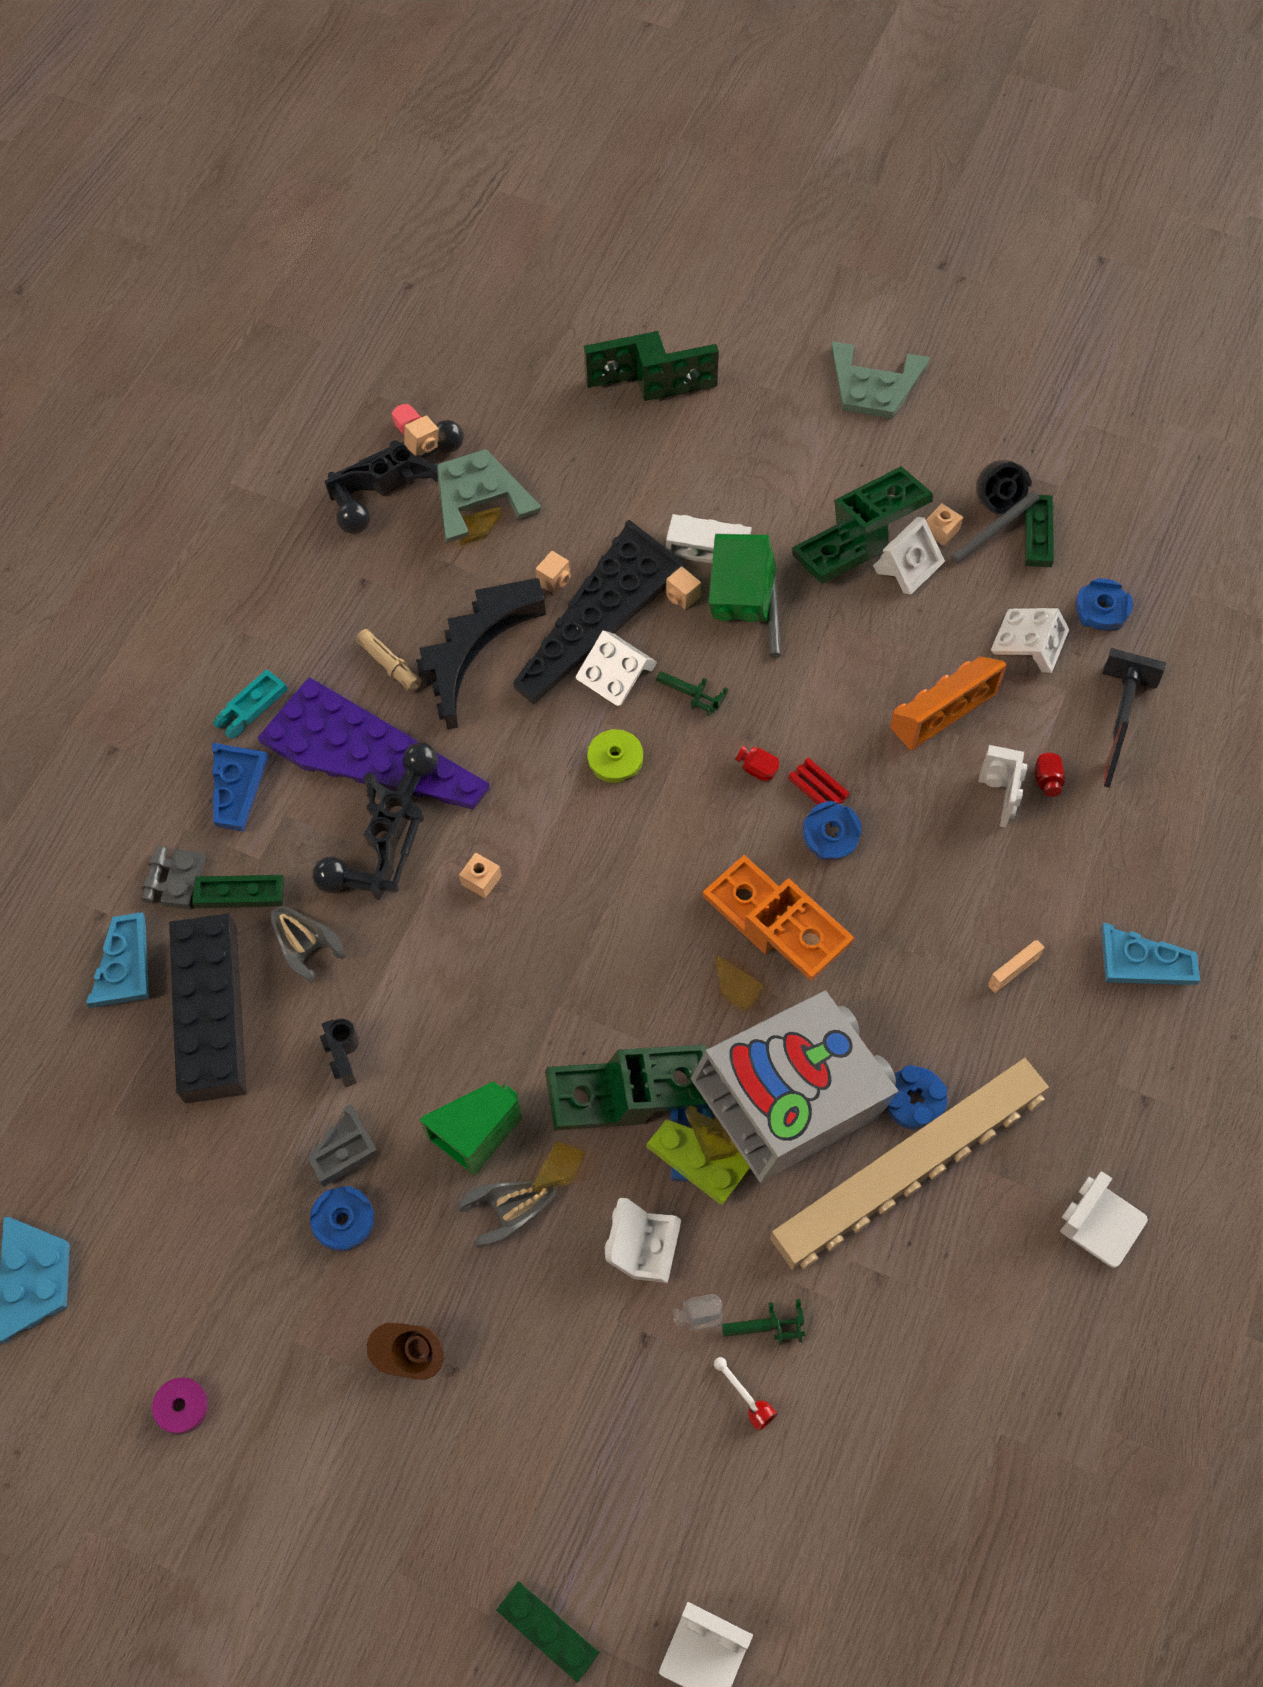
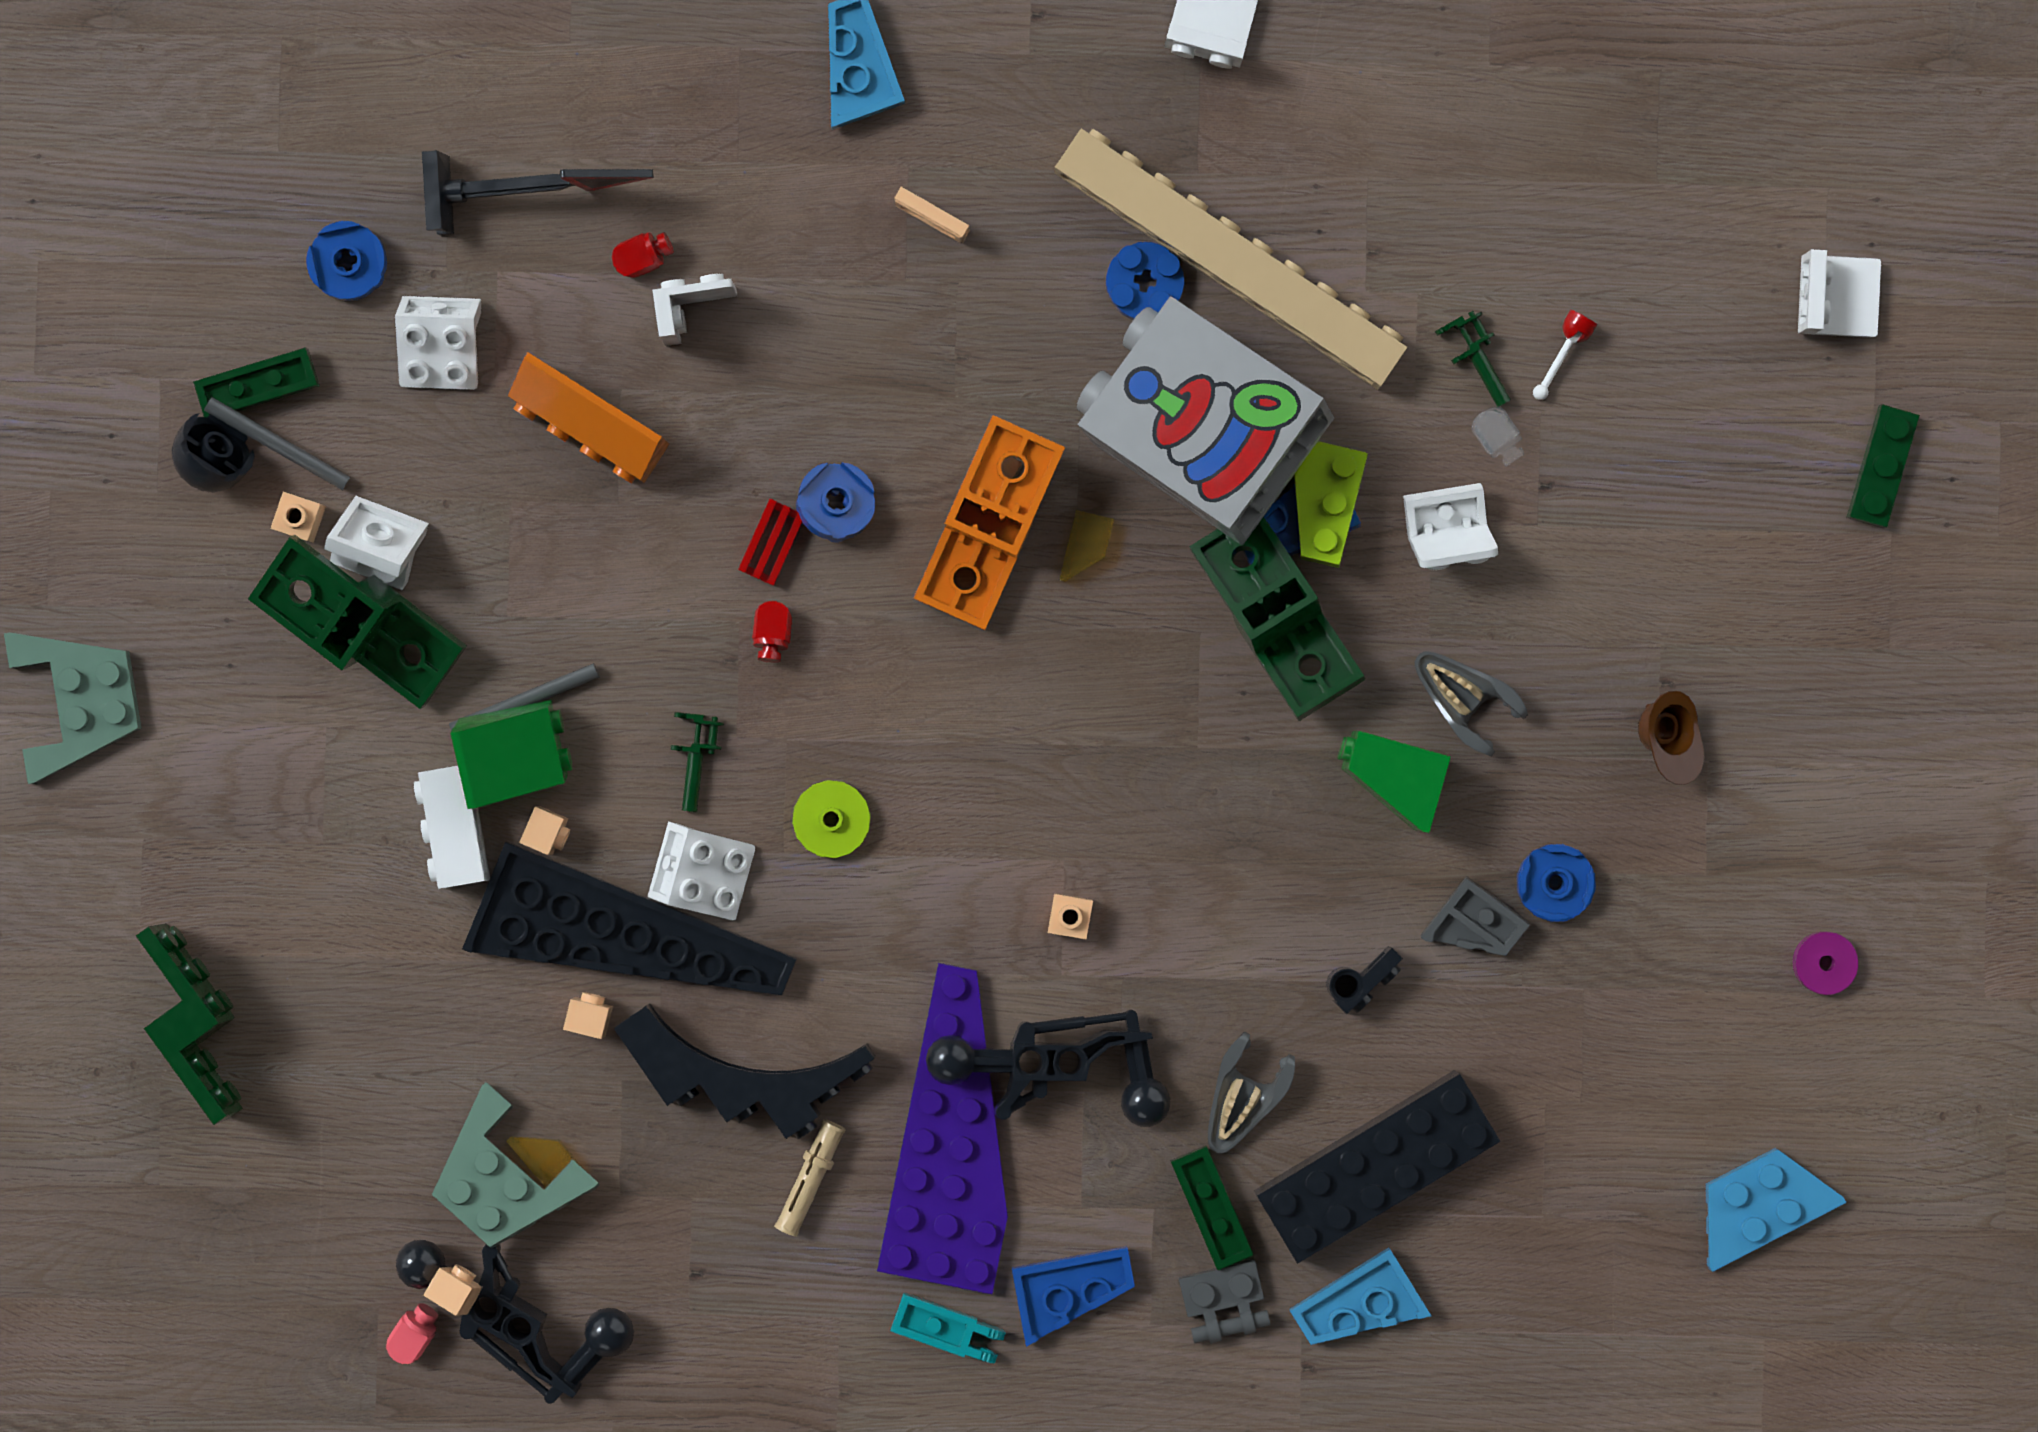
camera: 110 degrees left, 25 degrees up
(559, 1167) = (1397, 660): clear yellow tile -> none
(711, 1136) = (1300, 496): clear yellow tile -> none

